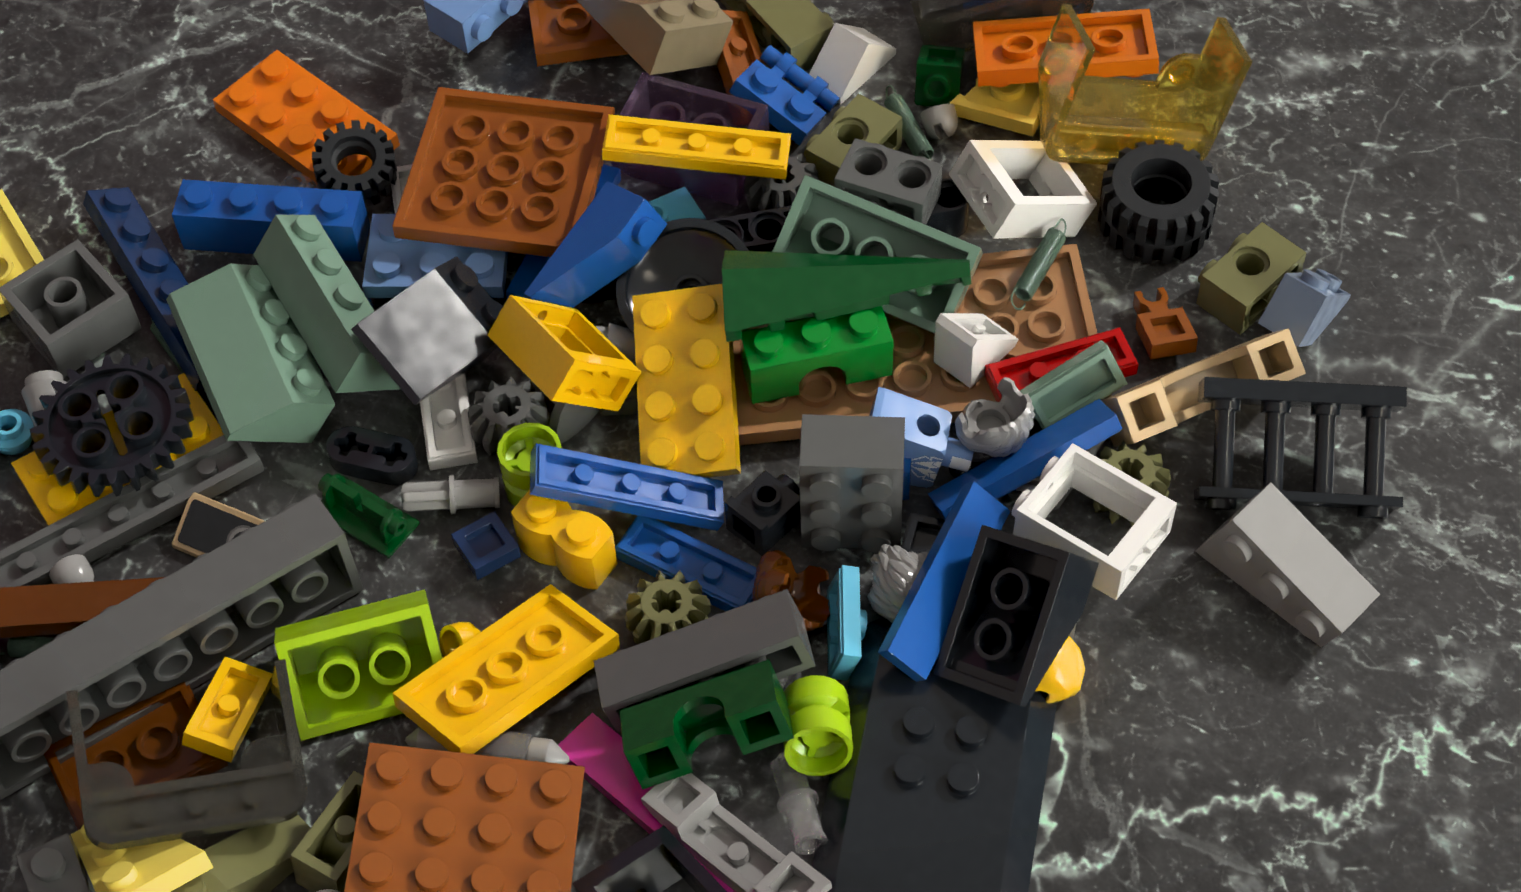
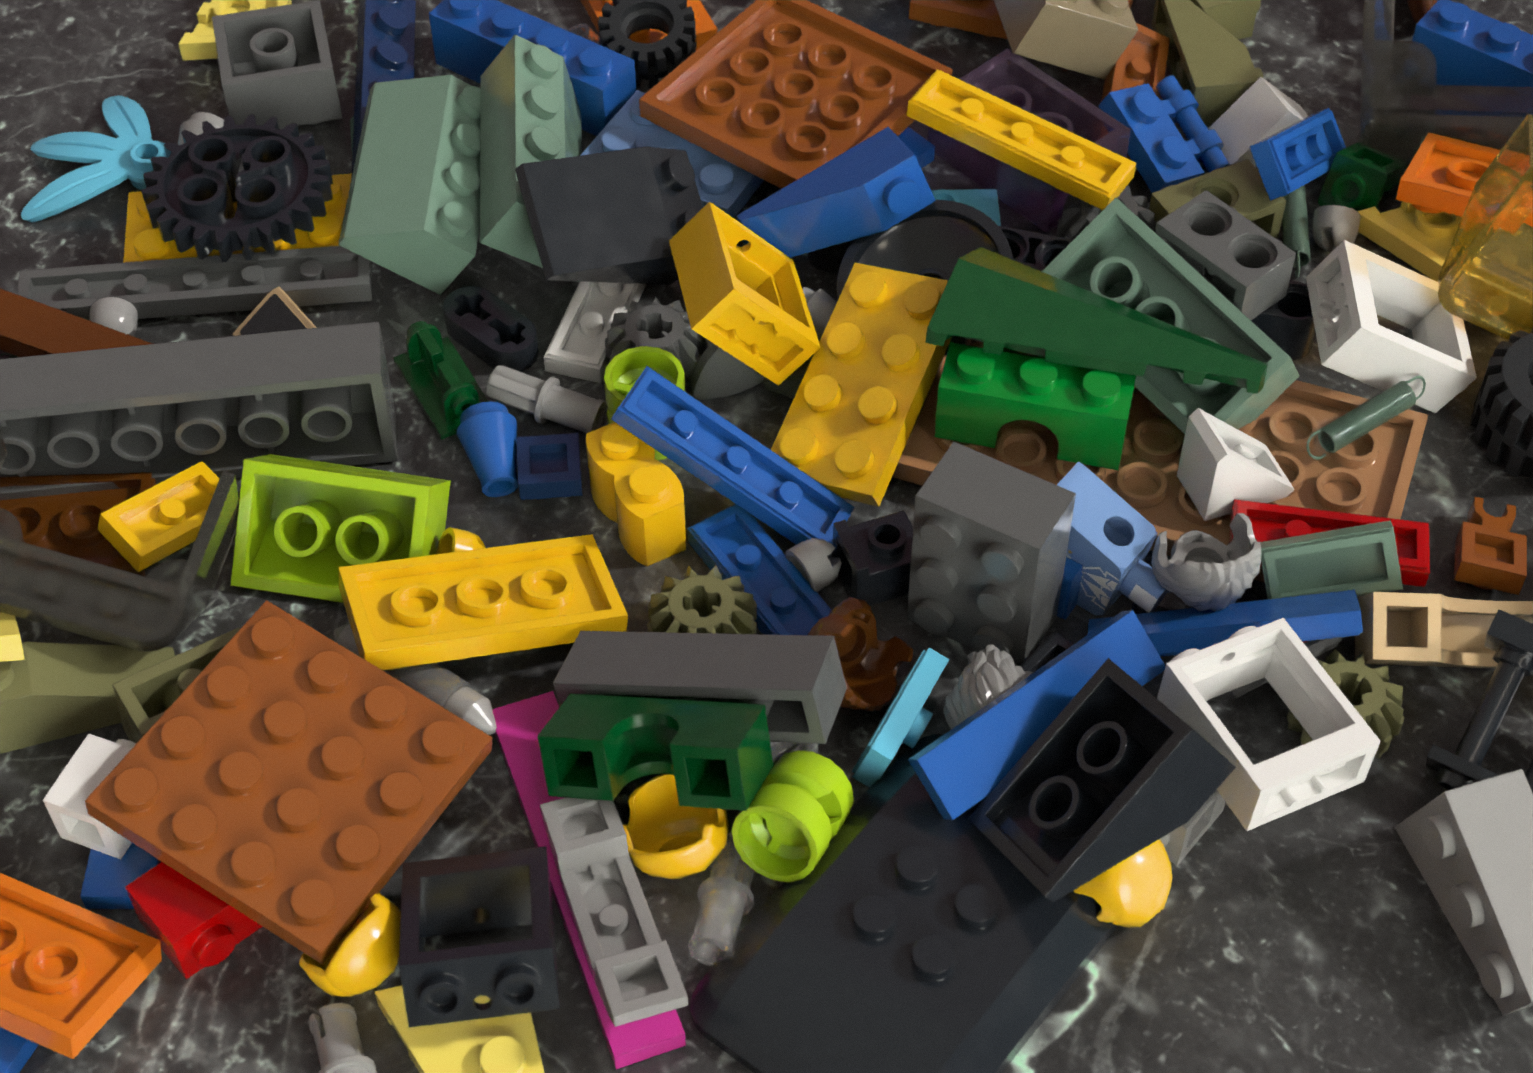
camera: 25 degrees right, 5 degrees down
(432, 548) = (491, 446): none -> blue cone
(720, 534) = (812, 562): none -> light grey hinge
(737, 778) = (672, 838): none -> yellow hair
(892, 75) = (1298, 153): none -> blue tile

